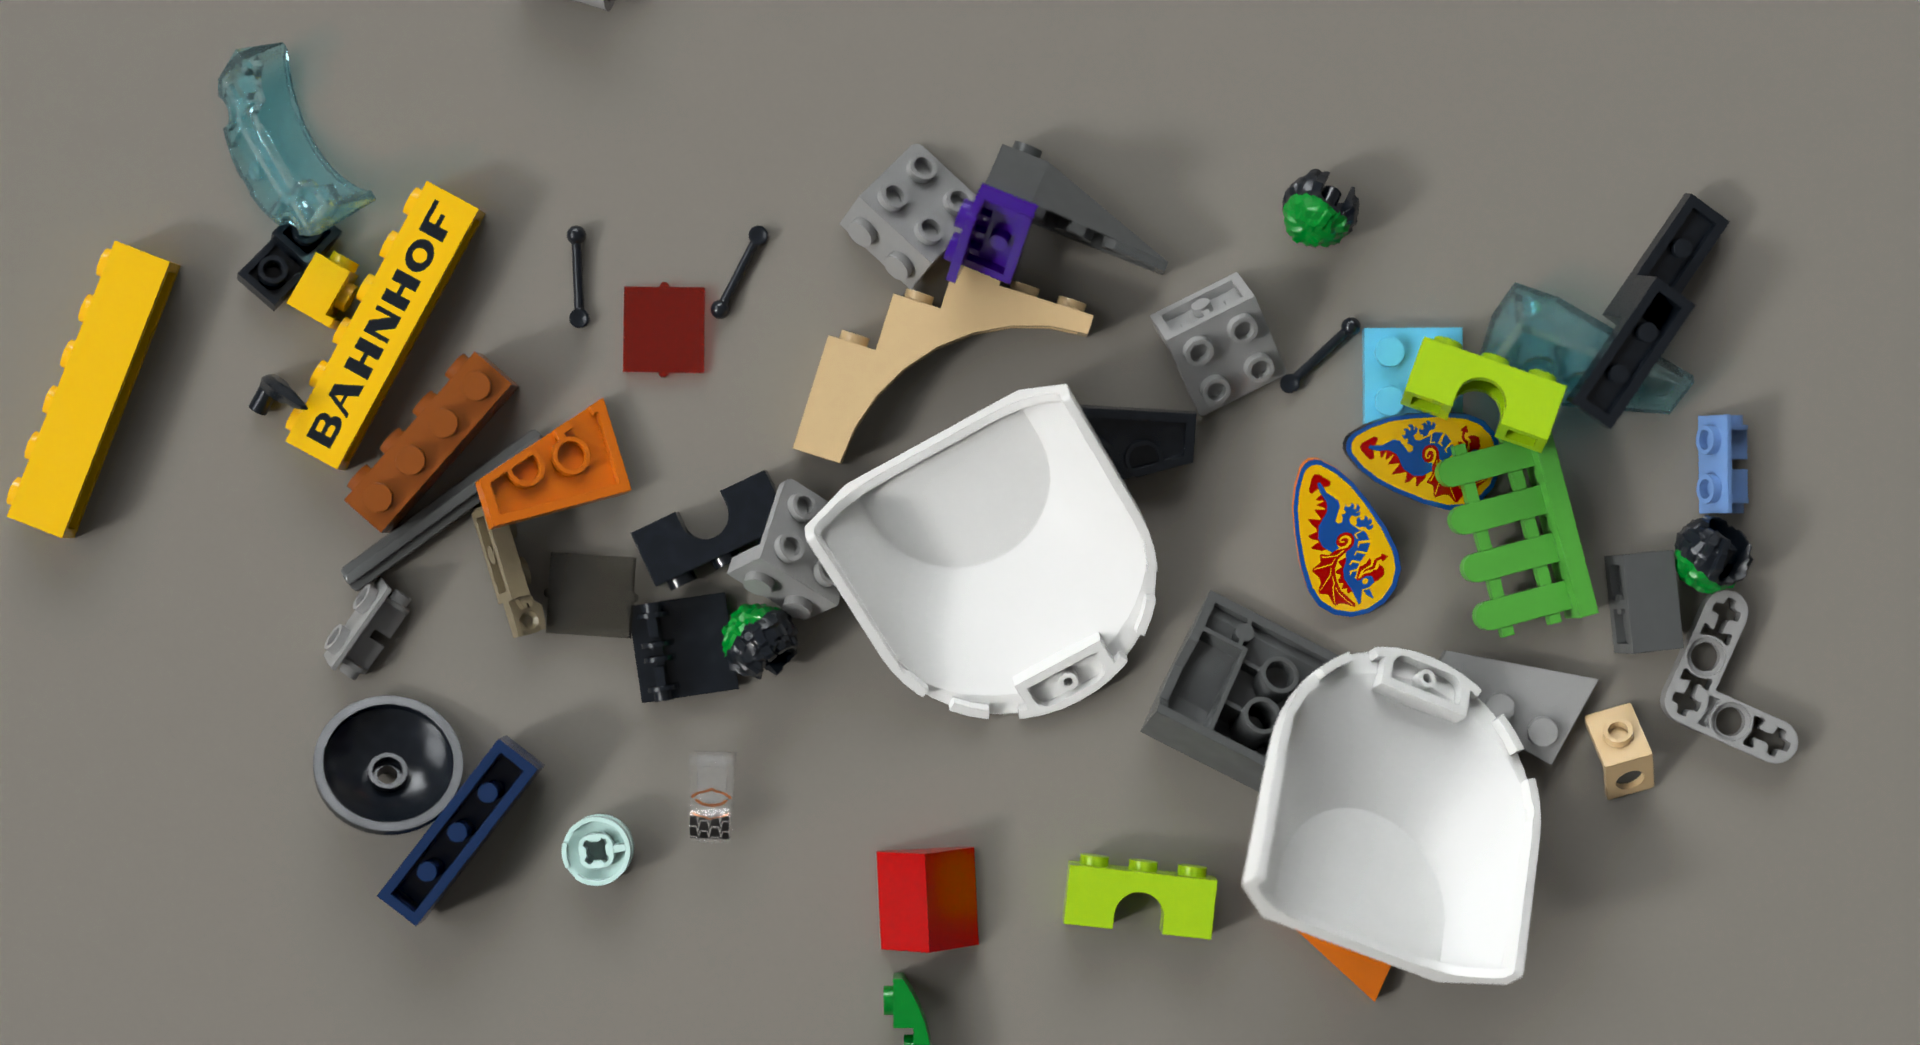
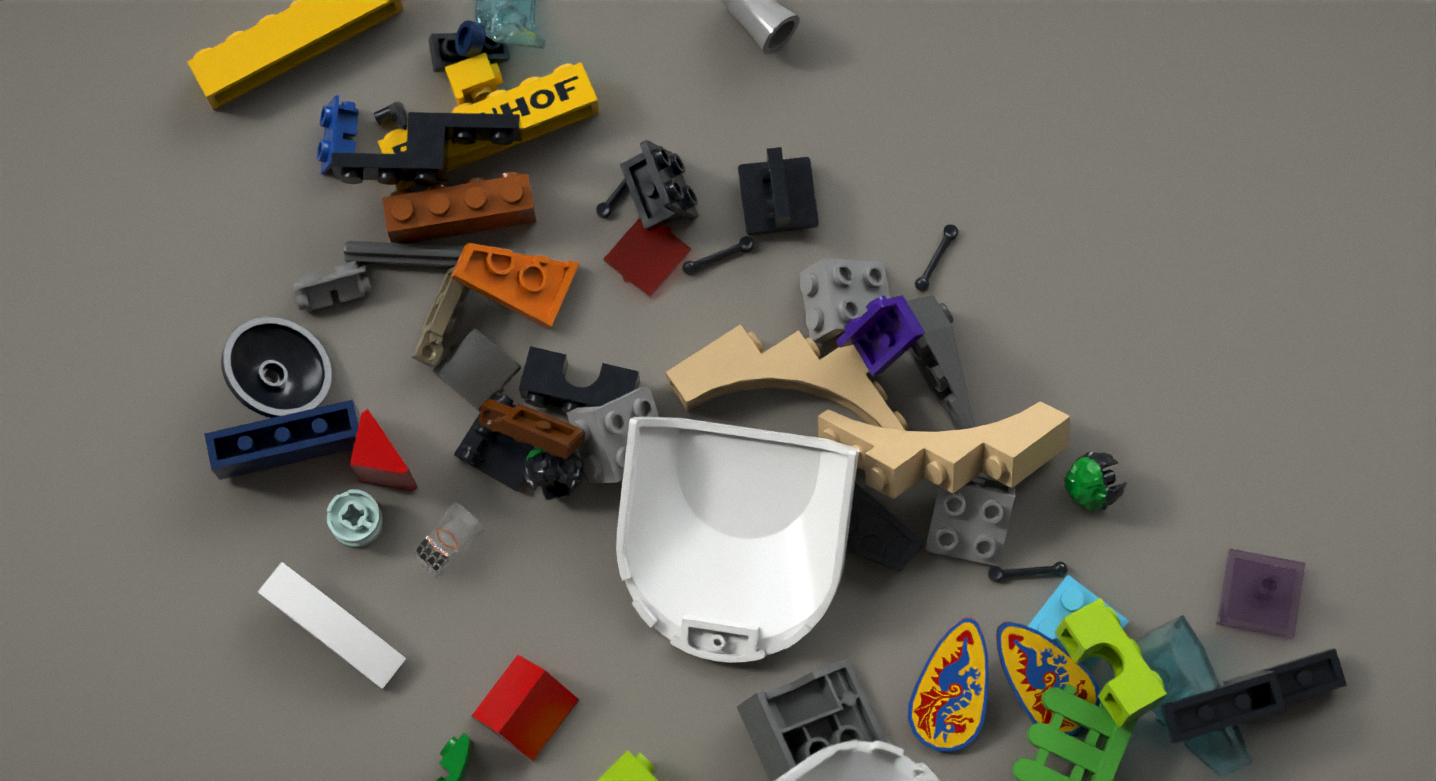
camera: 35 degrees right, 15 degrees down
(220, 450) = (337, 121): none -> blue hinge
(287, 249) = (470, 38): none -> dark blue tile
(348, 411) = (427, 147): none -> black bracket
(571, 771) = (376, 459): none -> red slope
(621, 250) = (659, 186): none -> black bracket
(667, 976) = (331, 625): none -> white slope
(709, 621) = (532, 427): none -> reddish brown hinge
(749, 157) = (778, 194): none -> black bracket
(960, 53) = (950, 233): none -> black hinge
(1160, 311) = (952, 458): none -> tan arch
(1571, 190) = (1260, 593): none -> clear purple tile

